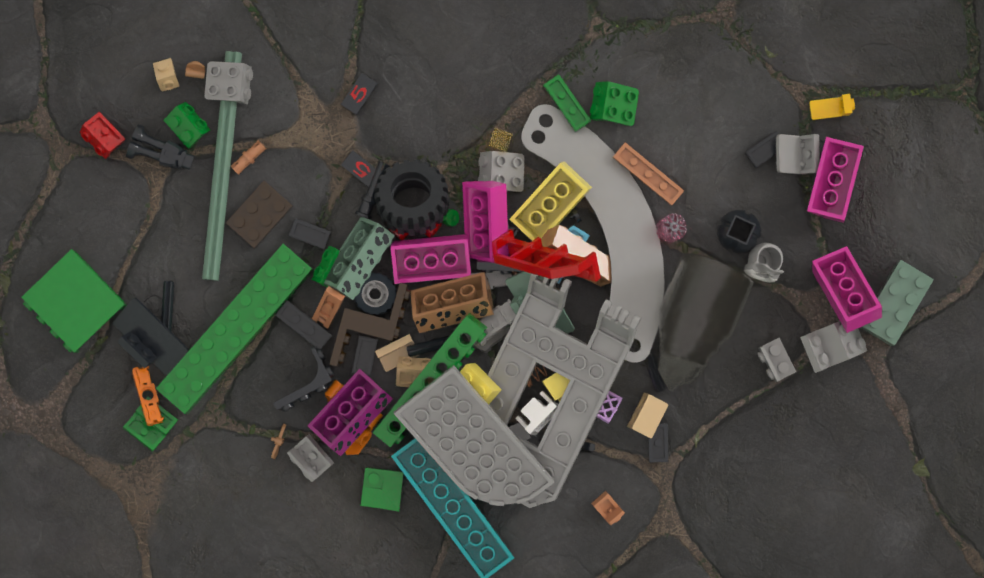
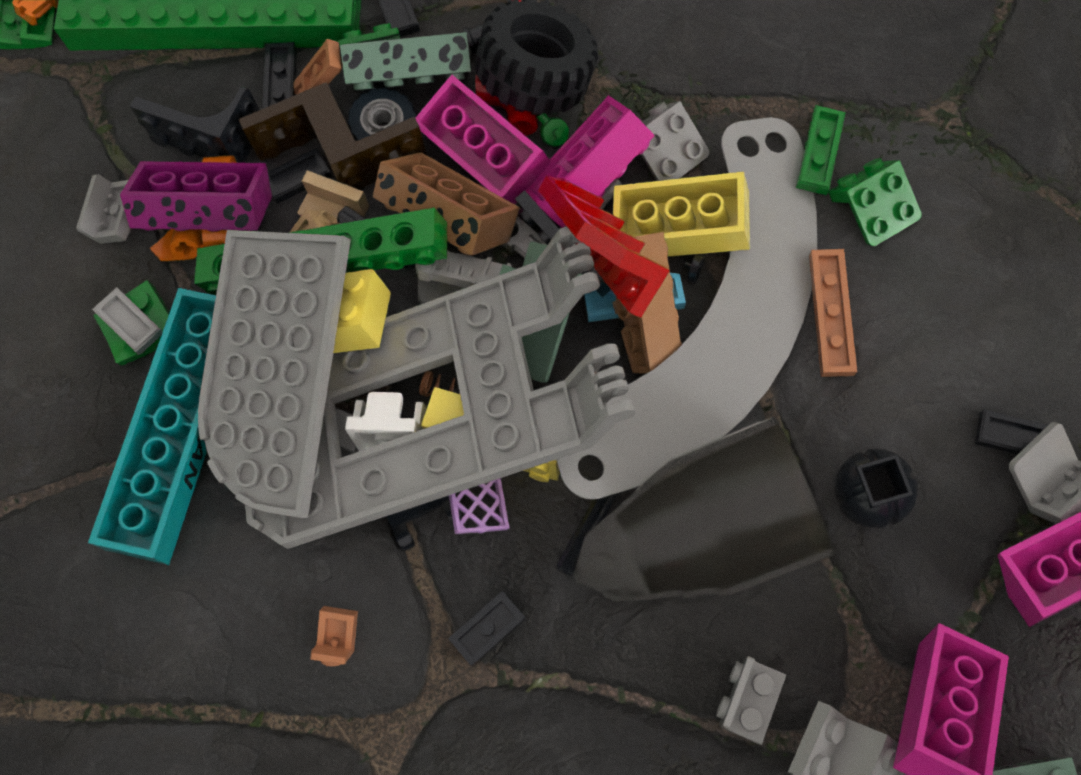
camera: 55 degrees right, 15 degrees down
(278, 441) = (108, 164): medium nougat piece -> none
(382, 491) = (128, 321): none -> light grey tile
(500, 140) = (703, 107): clear yellow panel -> none
(647, 415) = (513, 581): tan panel -> none
(671, 228) = (792, 396): clear pink wheel -> none
(764, 262) = (869, 560): light grey piece -> none

